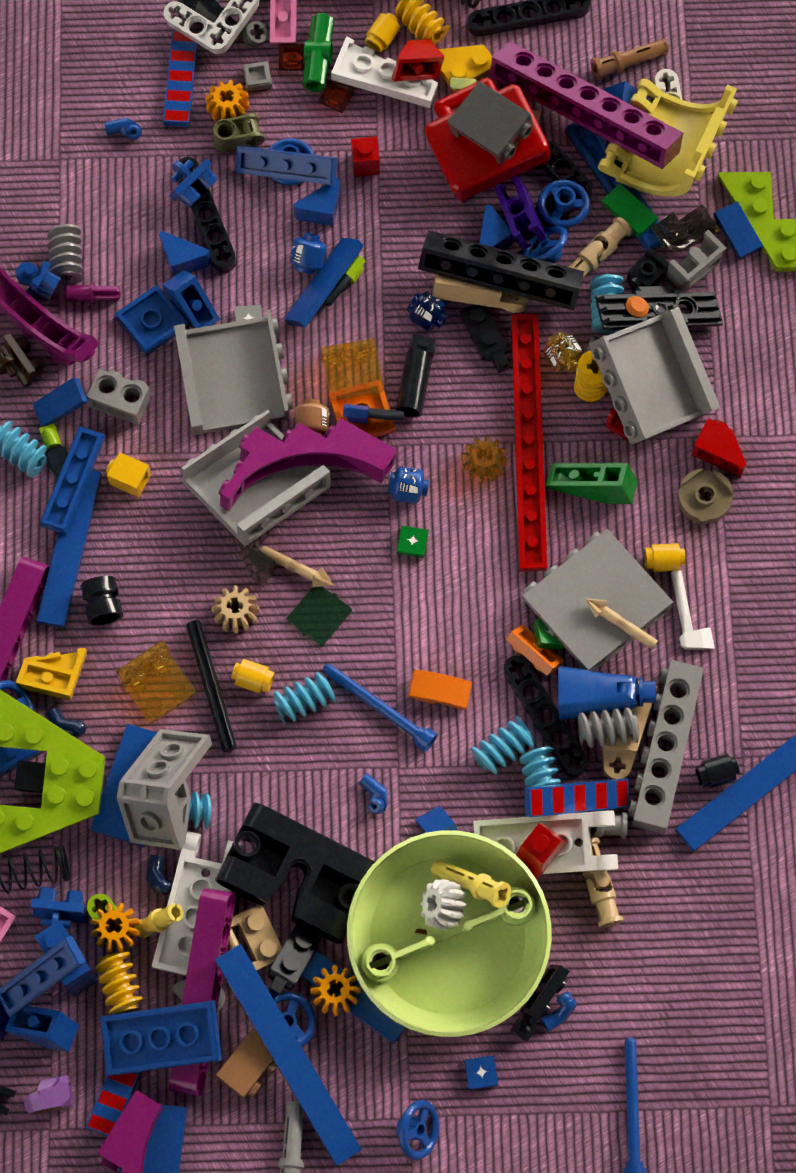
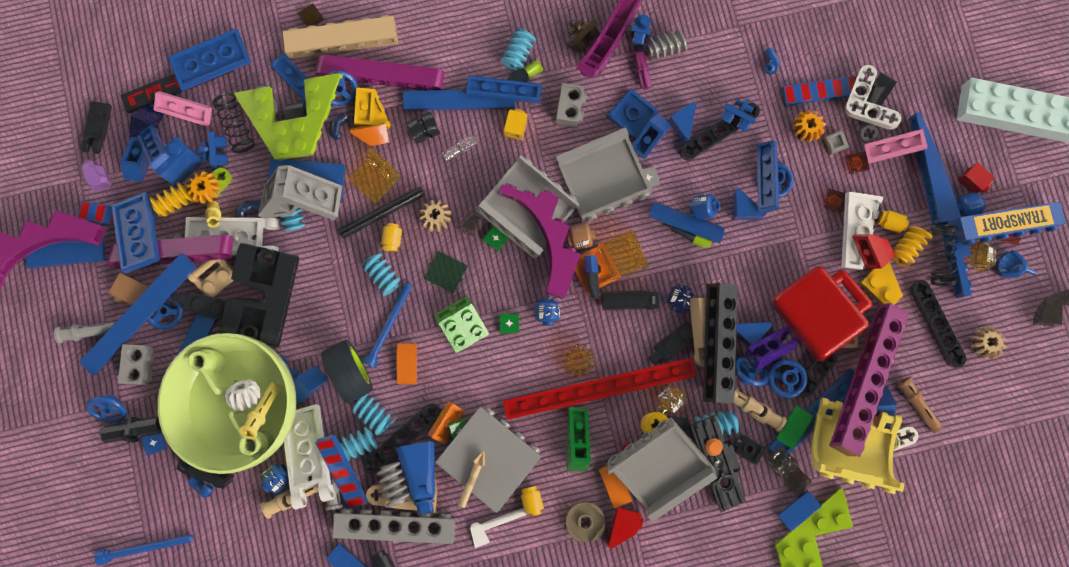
camera: 80 degrees right, 10 degrees up
(60, 402) = (556, 68): blue tile -> none
(93, 675) = (372, 134): none -> orange slope
(143, 559) = (459, 148): none -> clear axle
(239, 133) = (787, 140): olive piece -> none
(286, 536) = (495, 239): none -> green tile
(318, 52) = (864, 179): green piece -> none
(318, 578) = (469, 265): tan piece -> none
(324, 990) = (180, 331): light orange gear -> none
(357, 1086) = (130, 364): none -> light grey brick
(365, 156) = (790, 229): red brick -> none
(378, 794) = (326, 337): blue arm -> none
(398, 603) = (461, 324): none -> bracket
(437, 761) = (346, 371): none -> black wheel
(456, 1097) = (130, 430): none -> black piece
(459, 83) = (865, 285): yellowish green tile -> none
(491, 122) = (829, 311): dark grey panel -> none
(540, 849) = (296, 453): red slope -> none
(568, 898) = (275, 478): none -> blue head
(663, 447) = (616, 489): none -> orange slope
(697, 264) = (764, 484): light grey window -> none

